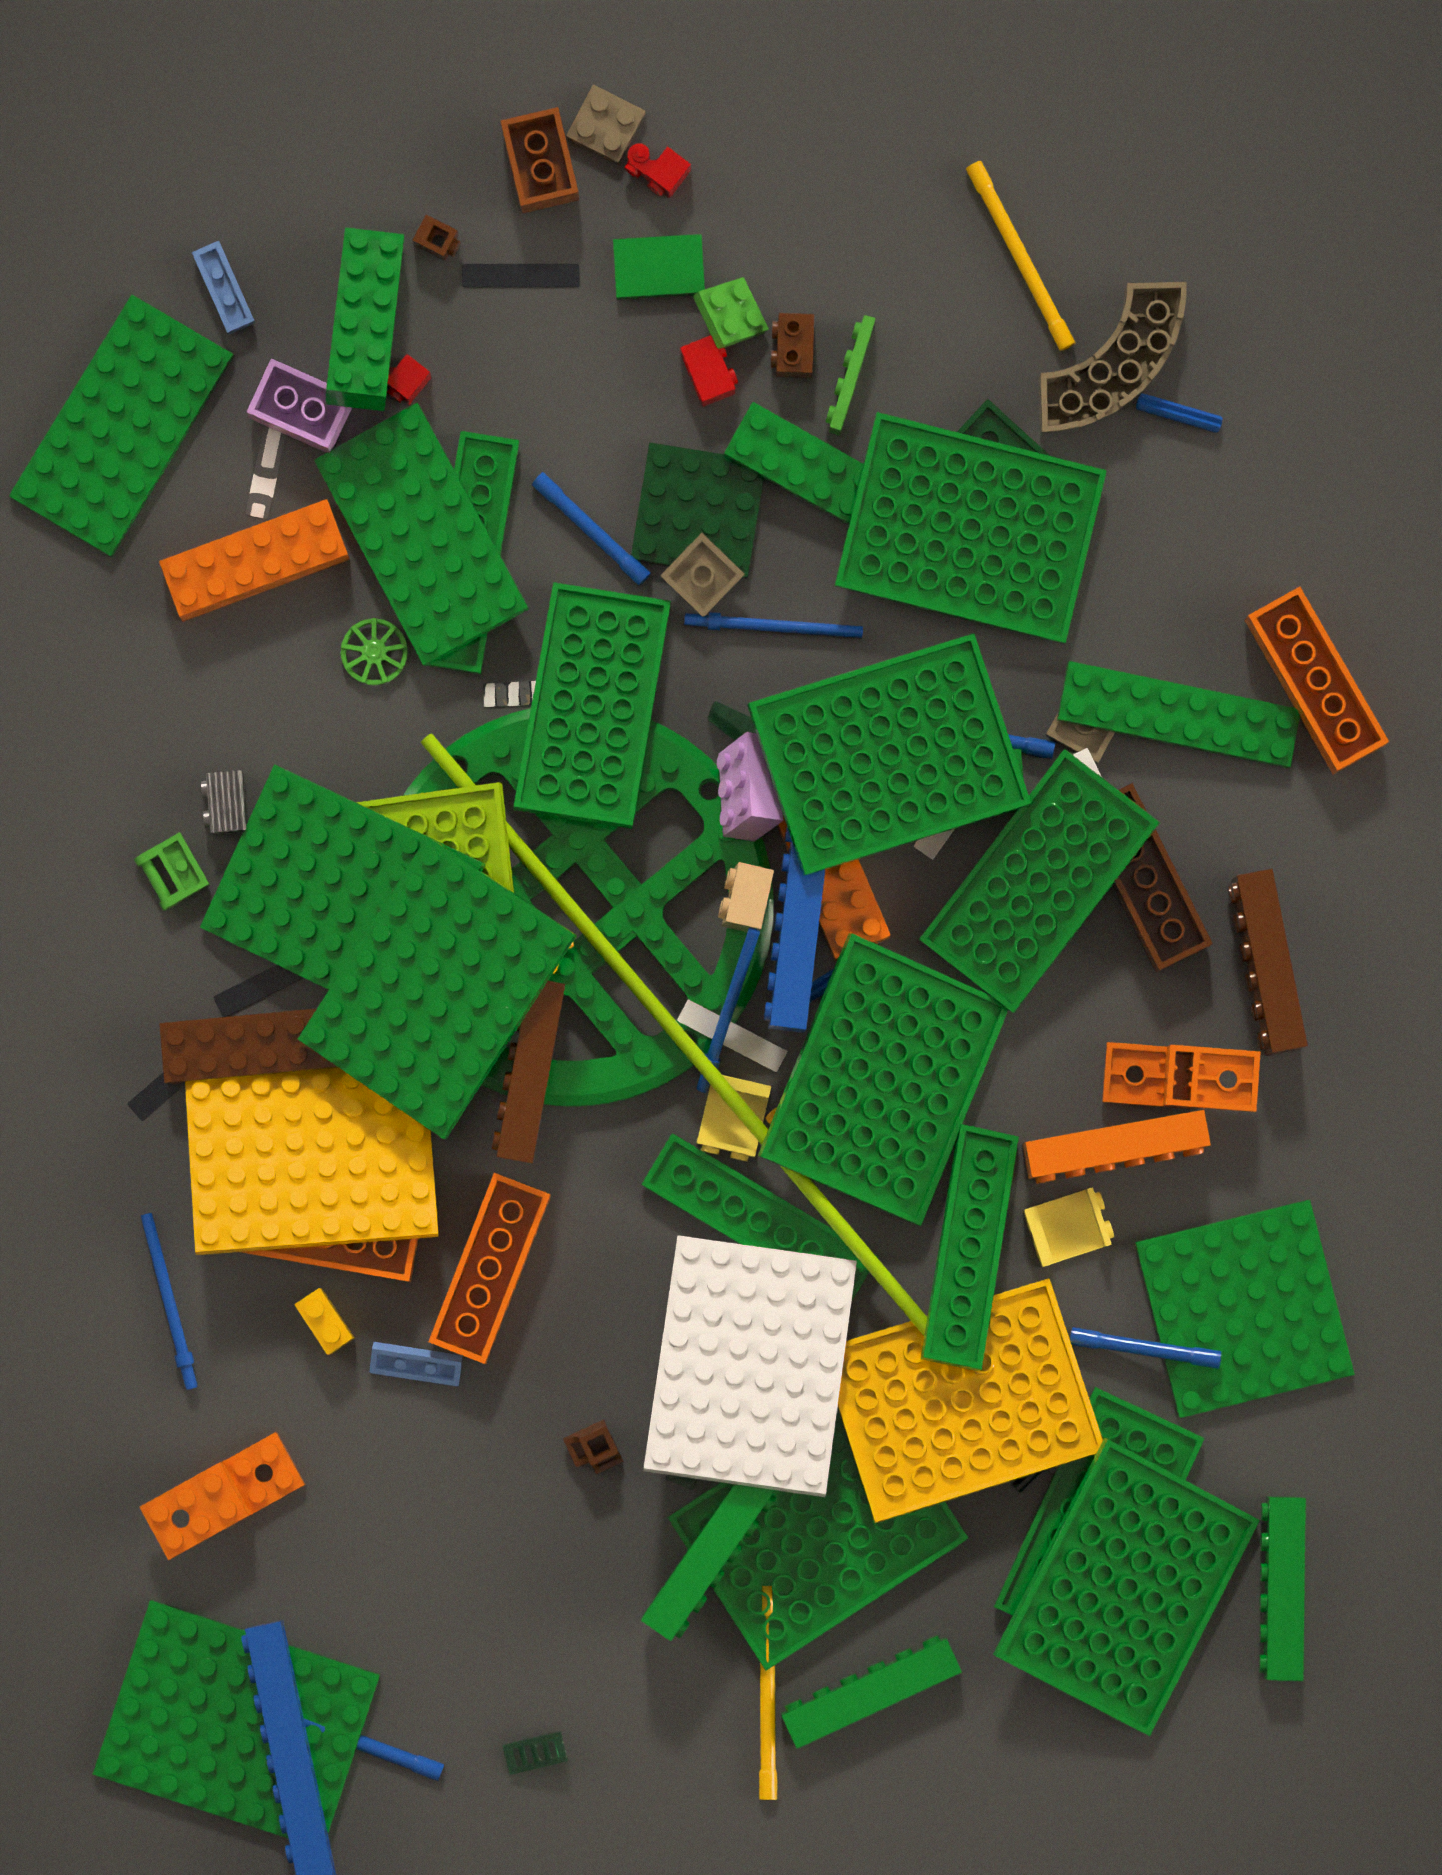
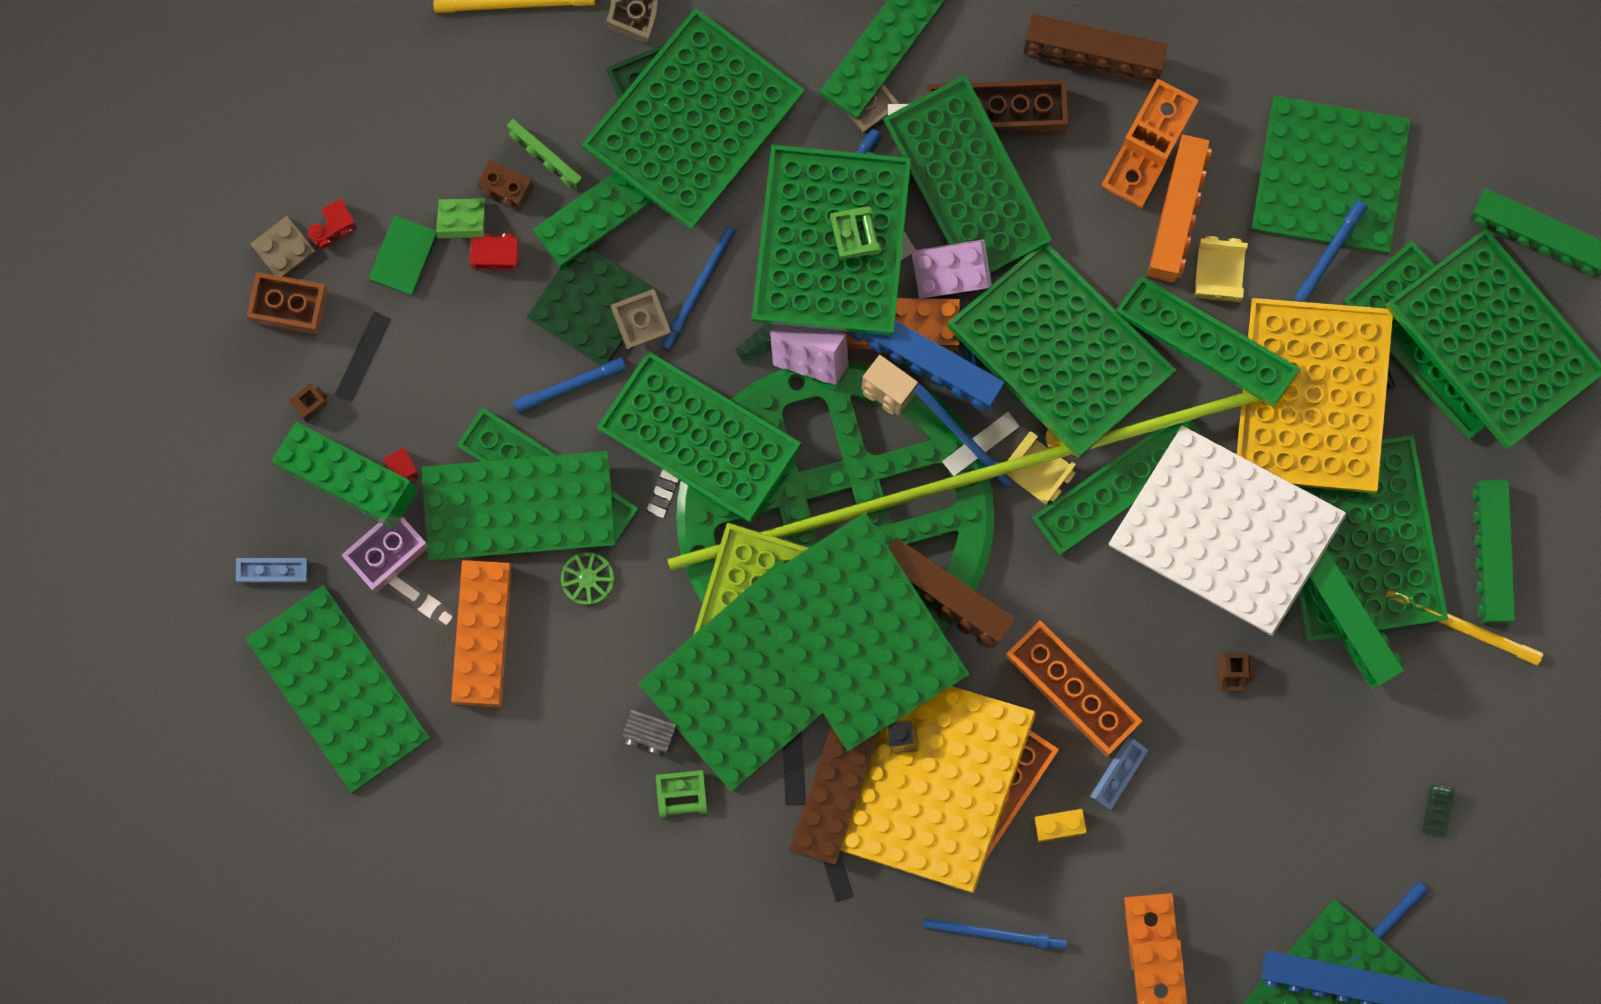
camera: 60 degrees left, 5 degrees down
(342, 1095) = (903, 737): none -> black brick
(900, 769) = (847, 233): none -> bright green plate
(923, 910) = (951, 269): none -> lavender brick

